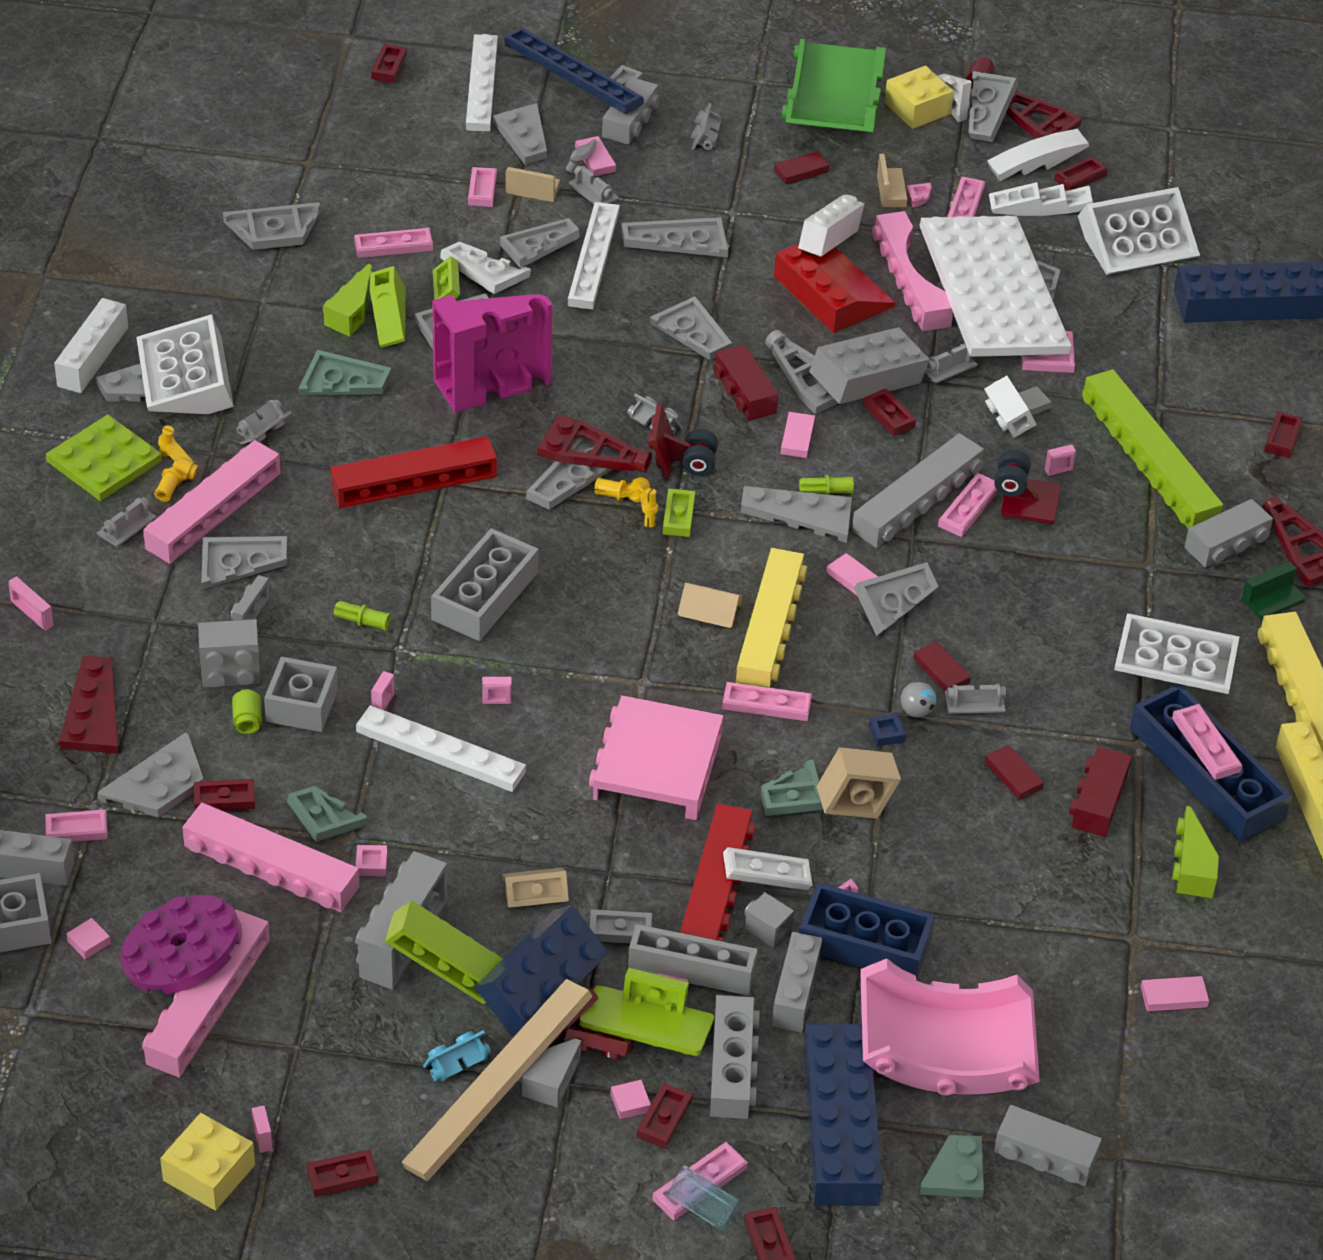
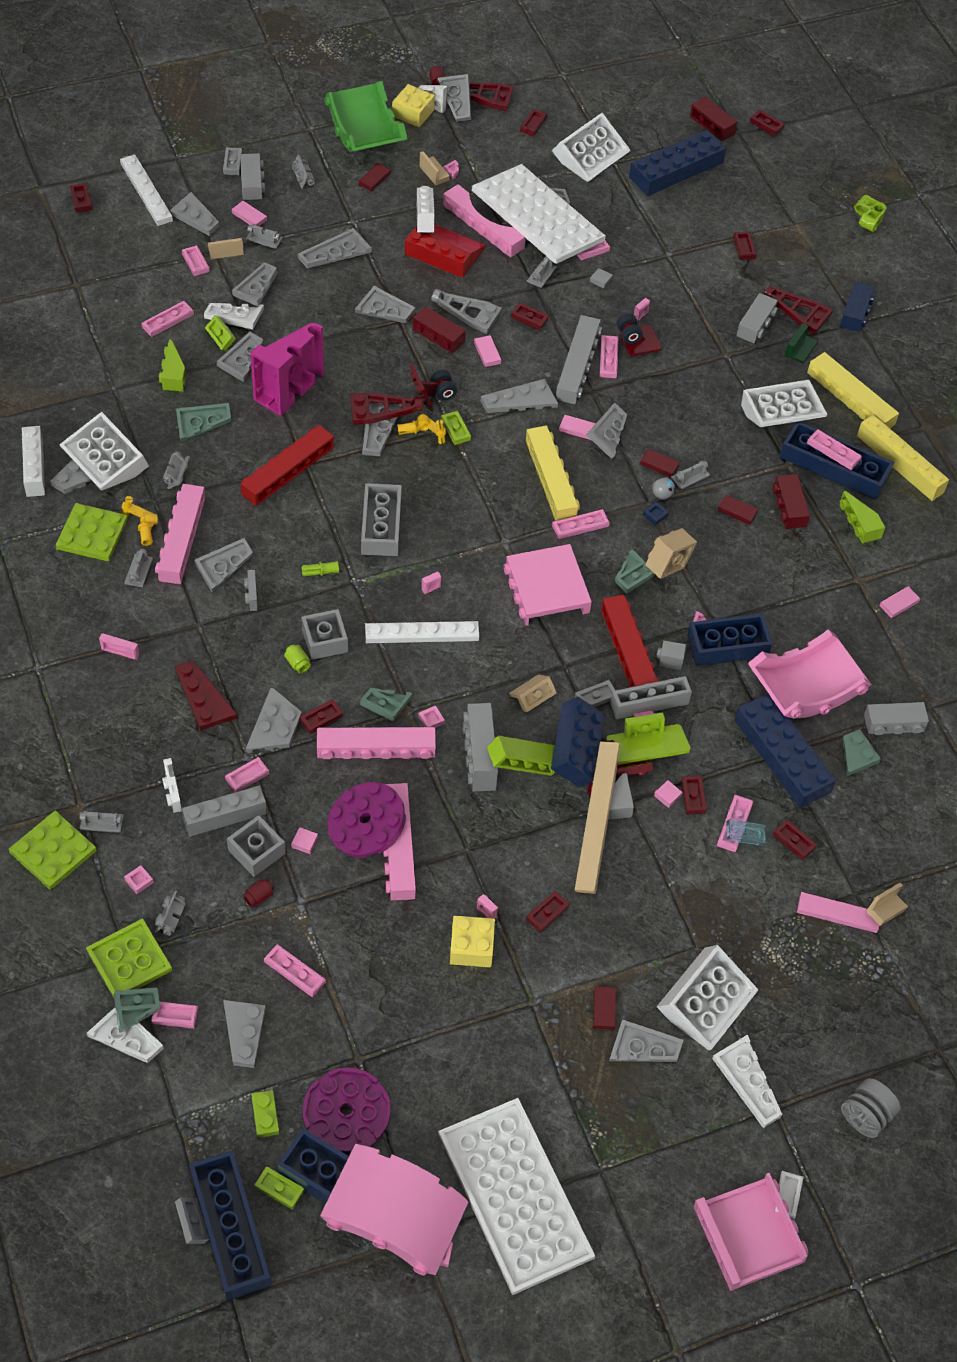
camera: 30 degrees left, 10 degrees up
(229, 653) = (266, 627): light grey brick -> none
(273, 225) = (86, 336): light grey wing -> none
(383, 691) = (367, 609): bright pink tile -> none
(389, 305) = (199, 363): lime slope -> none
(467, 1048) = (555, 818): medium azure hinge -> none
(574, 70) = (200, 162): dark blue tile -> none
(580, 154) = (242, 217): light grey bar -> none
(593, 255) = (294, 281): white plate -> none
(646, 407) = (393, 370): light grey hinge -> none
(709, 605) = (511, 478): tan panel -> none
(732, 1057) = (706, 753): light grey brick -> none
(767, 868) = (653, 625): white tile -> none
(796, 982) = (711, 685): light grey brick -> none
(827, 485) = (525, 376): lime axle -> none
(869, 365) = (503, 291): light grey brick -> none
(967, 197) = (481, 163): bright pink tile -> none
(1010, 407) = (594, 286): white brick -> none
(1031, 201) = (522, 149): white slope -> none
(1041, 151) = (503, 118): white slope -> none
(1151, 449) = (685, 283): lime brick -> none

